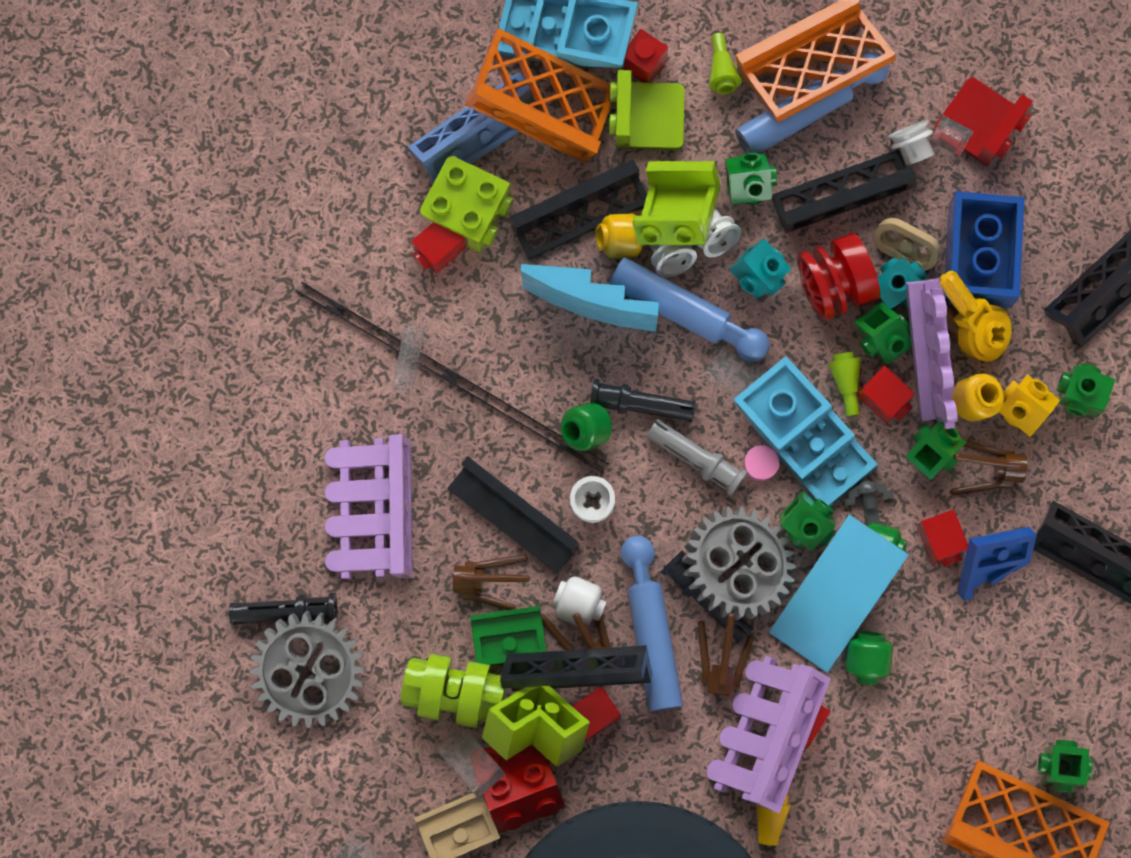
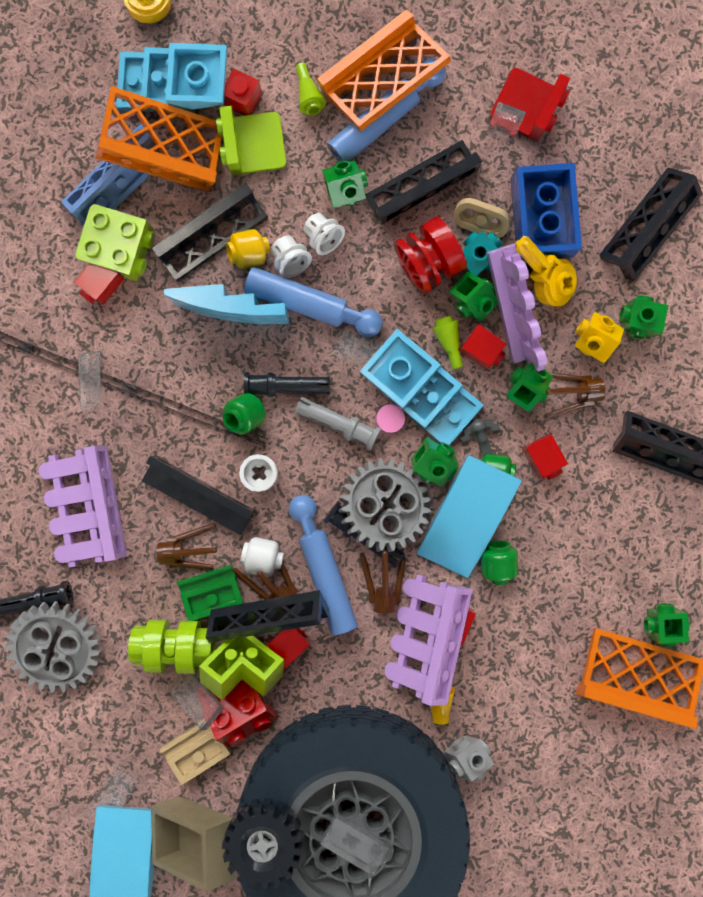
camera: 10 degrees left, 10 degrees up
(678, 203) = (288, 214): lime panel -> none
(761, 269) = (365, 259): teal brick -> none
(913, 142) = (475, 130): white piece -> none
(978, 397) = (558, 337): yellow head -> none
(995, 557) = (589, 466): blue wing -> none

